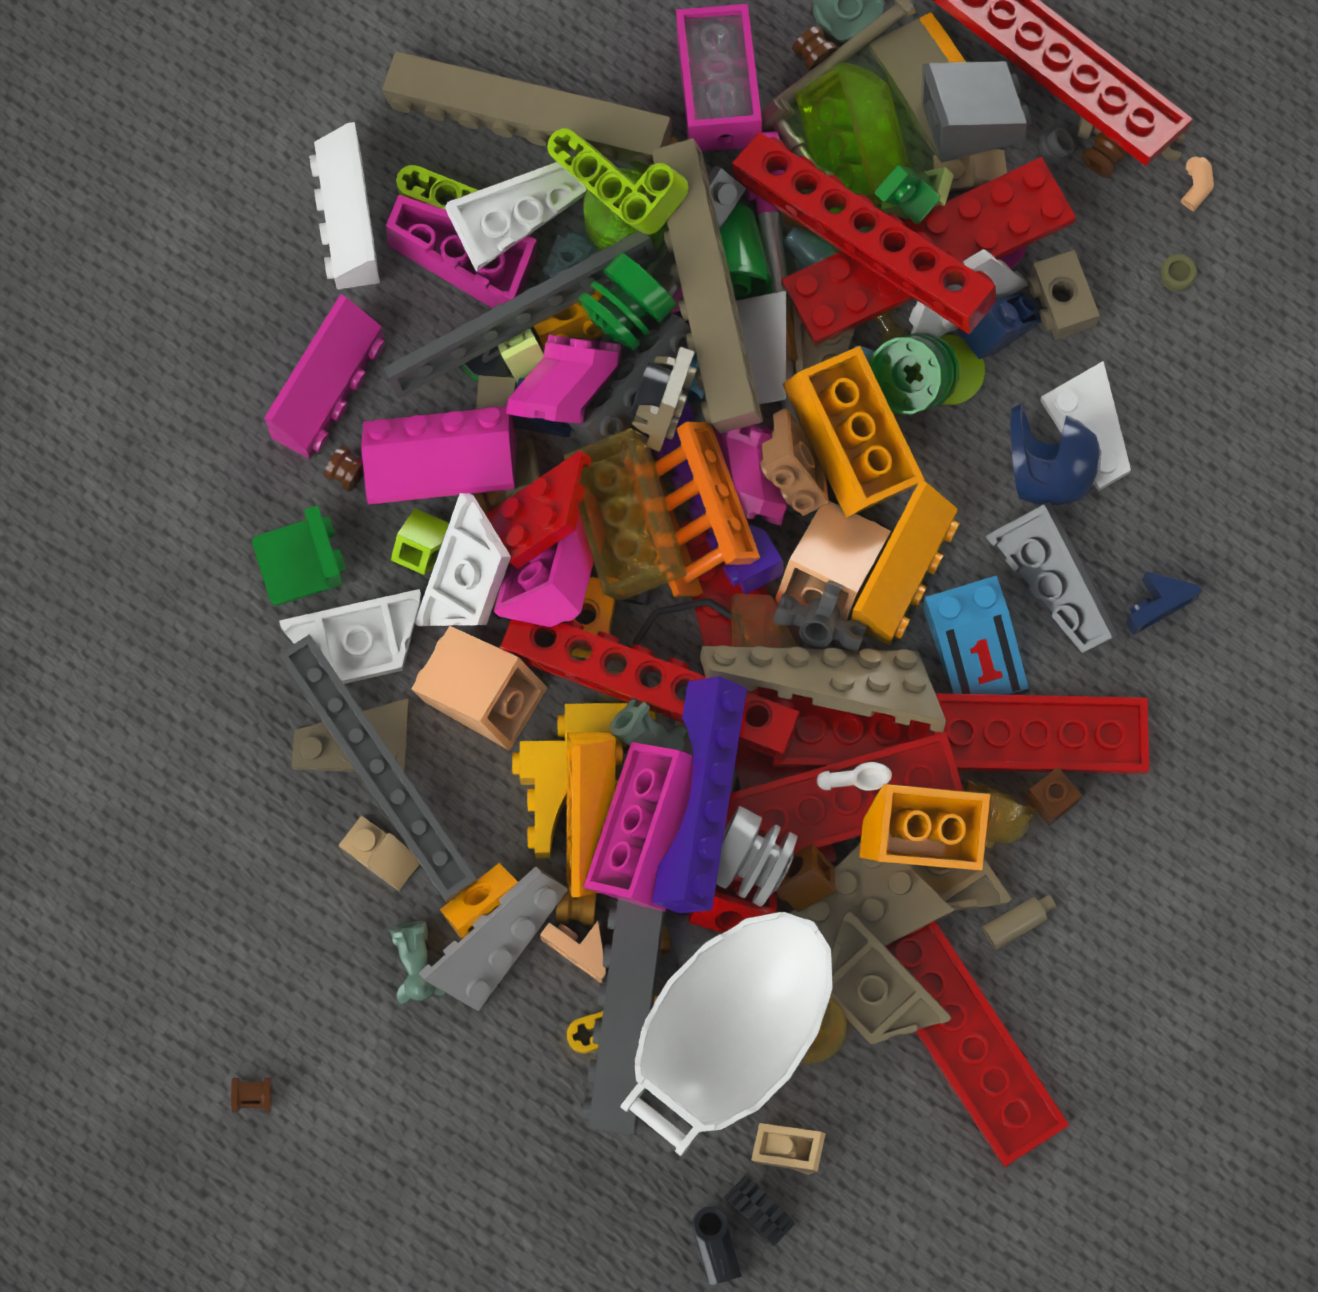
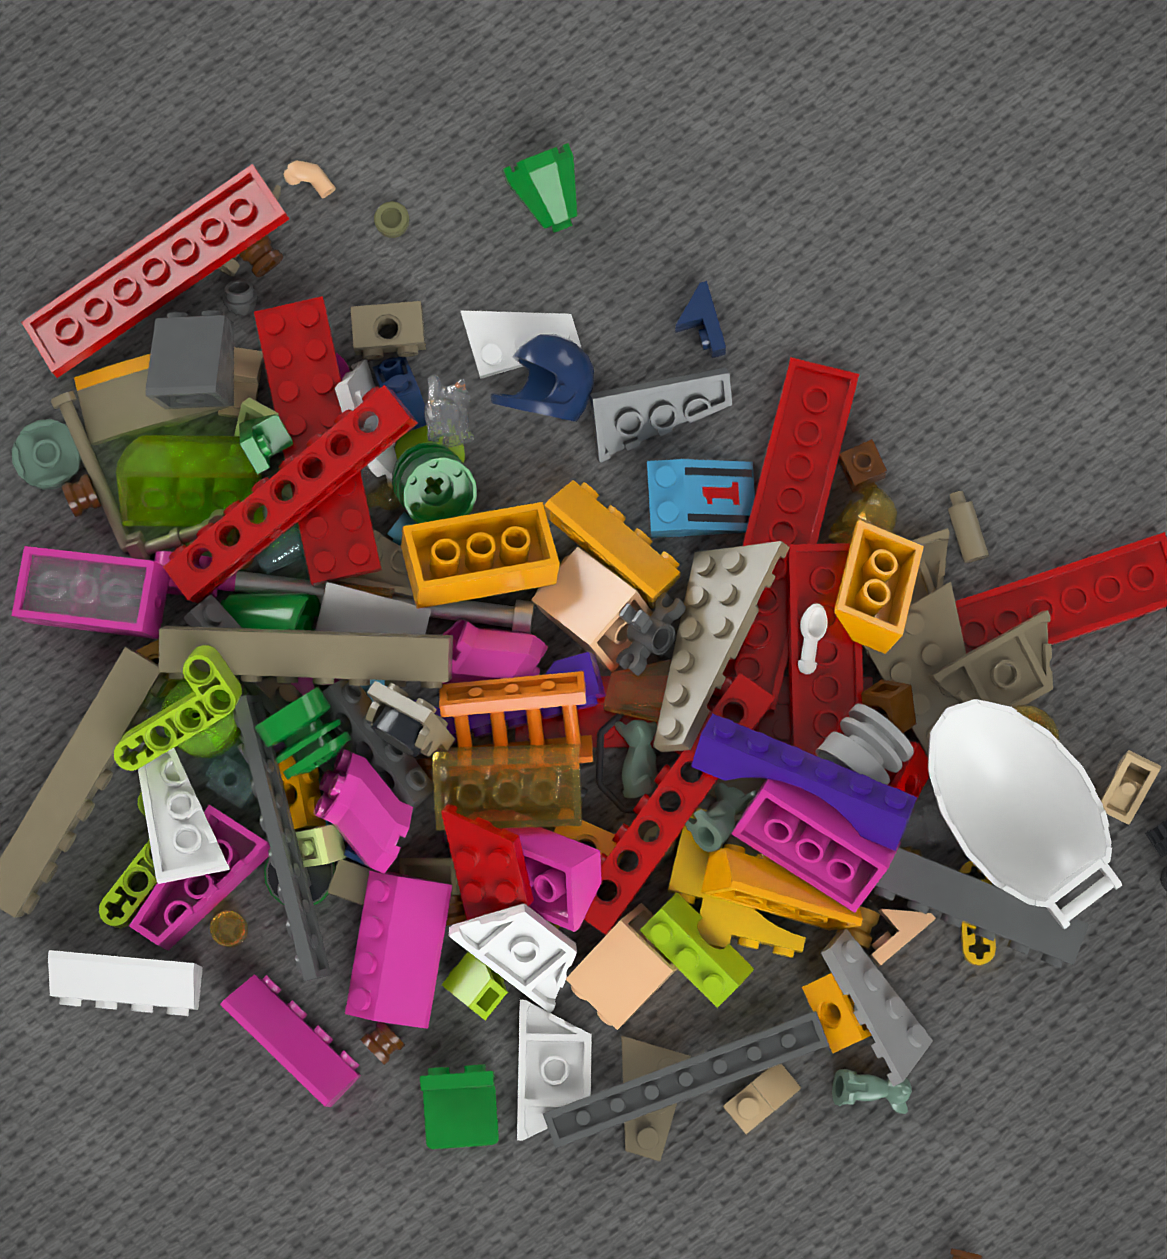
camera: 70 degrees left, 5 degrees up
(422, 288) = (221, 927): none -> clear yellow wheel
(490, 764) = (677, 937): none -> lime arch
(688, 644) = (640, 762): none -> sand green animal
(794, 465) = (500, 617): medium nougat plate -> none
(990, 373) = (447, 413): none -> clear animal
(1254, 410) = (546, 187): none -> green cone

